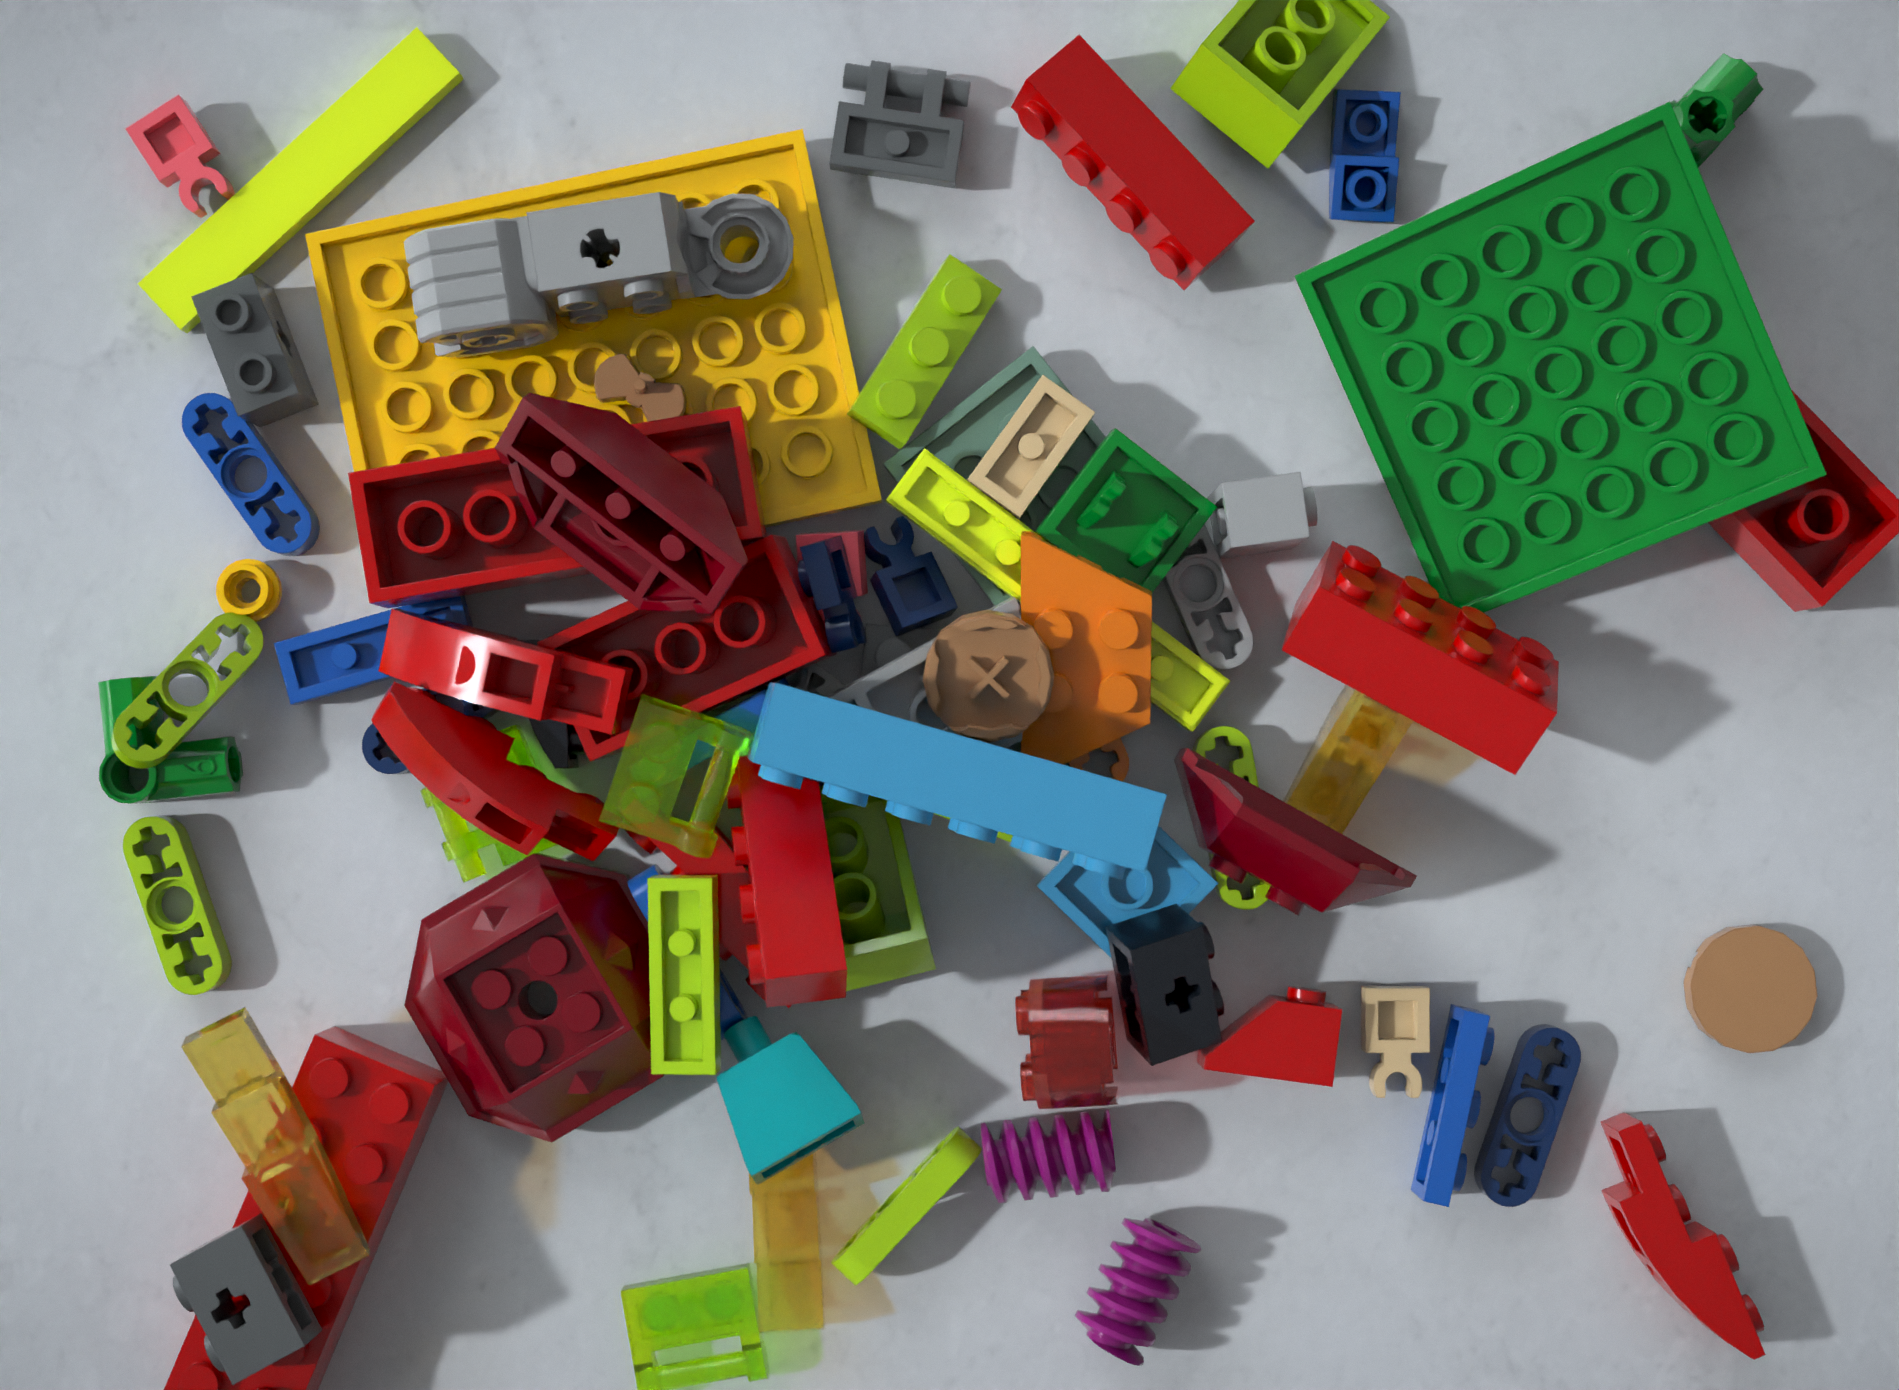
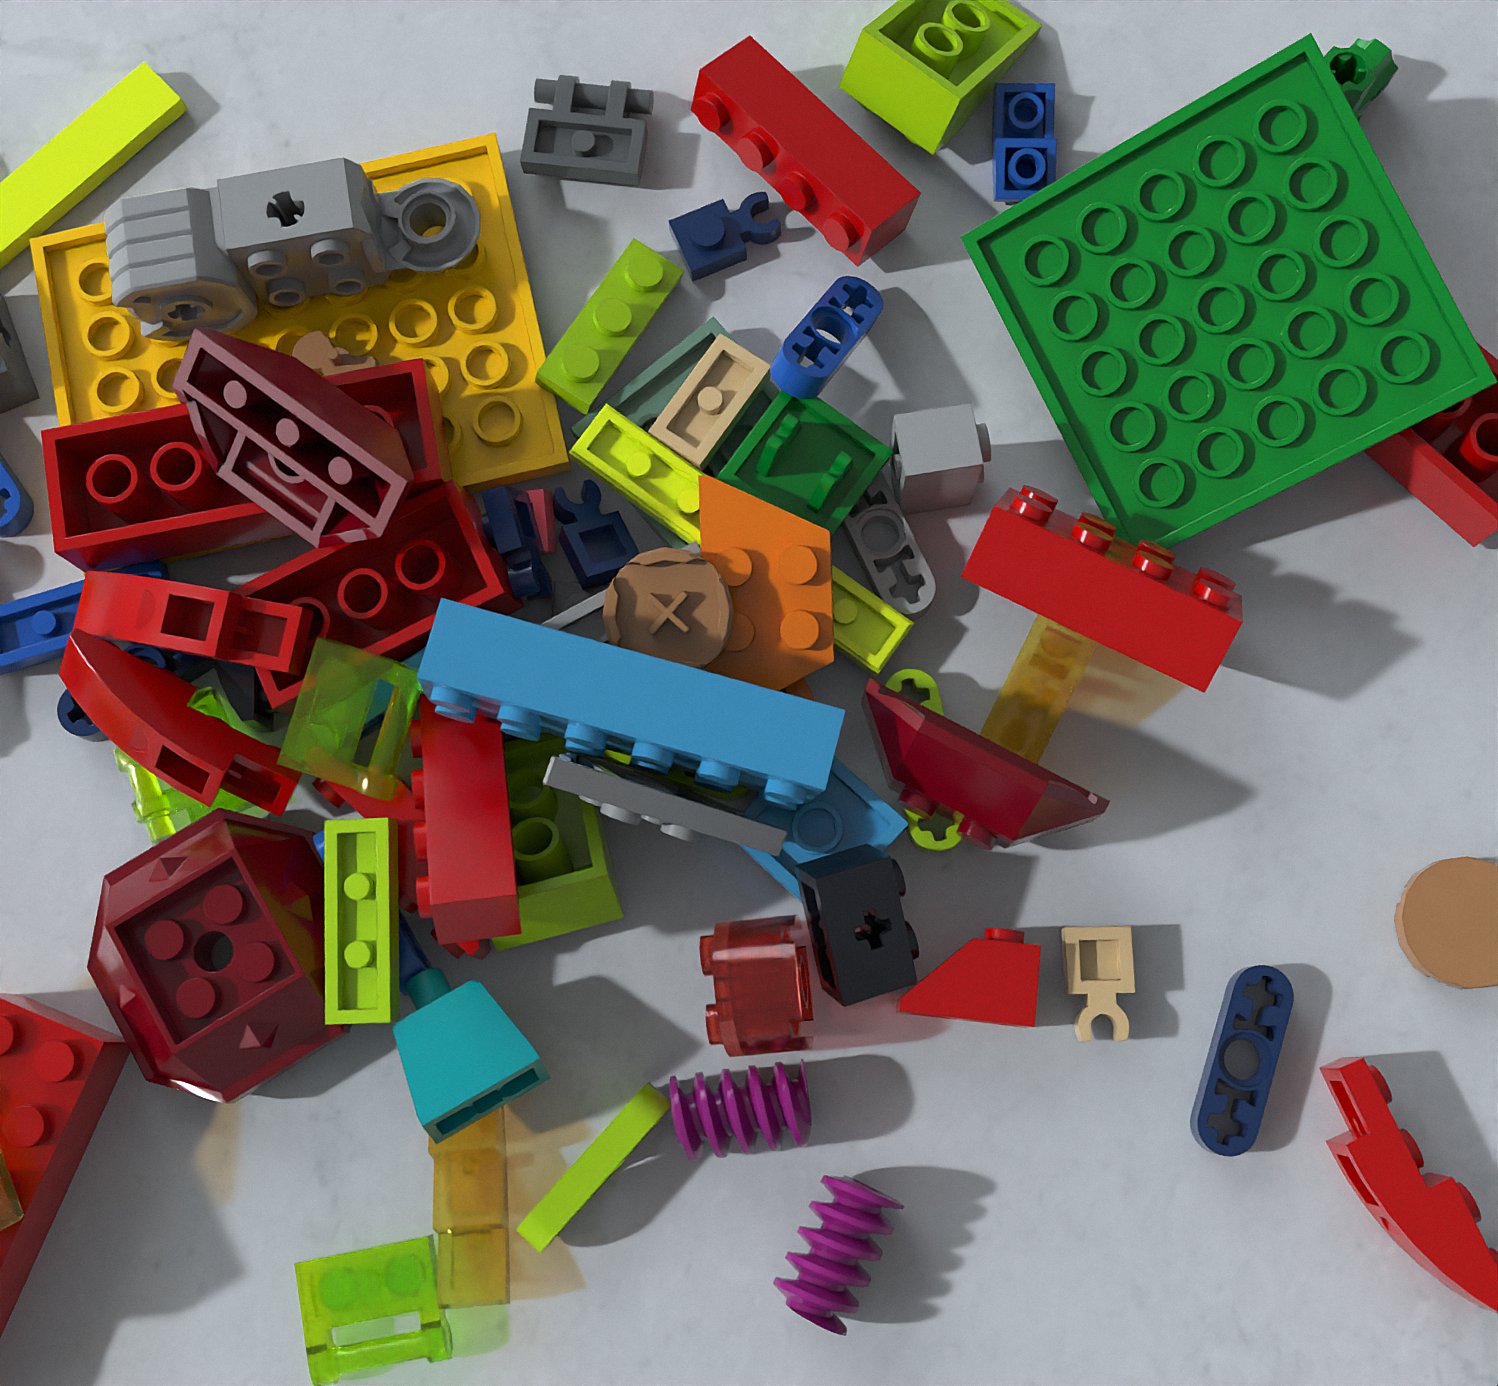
camera: 10 degrees right, 10 degrees down
(994, 871) = (678, 810): none -> light grey wing
(1033, 250) = (715, 238): none -> dark blue plate
(1133, 388) = (826, 354): none -> blue beam
(1452, 1105) = (1163, 1048): blue plate -> none

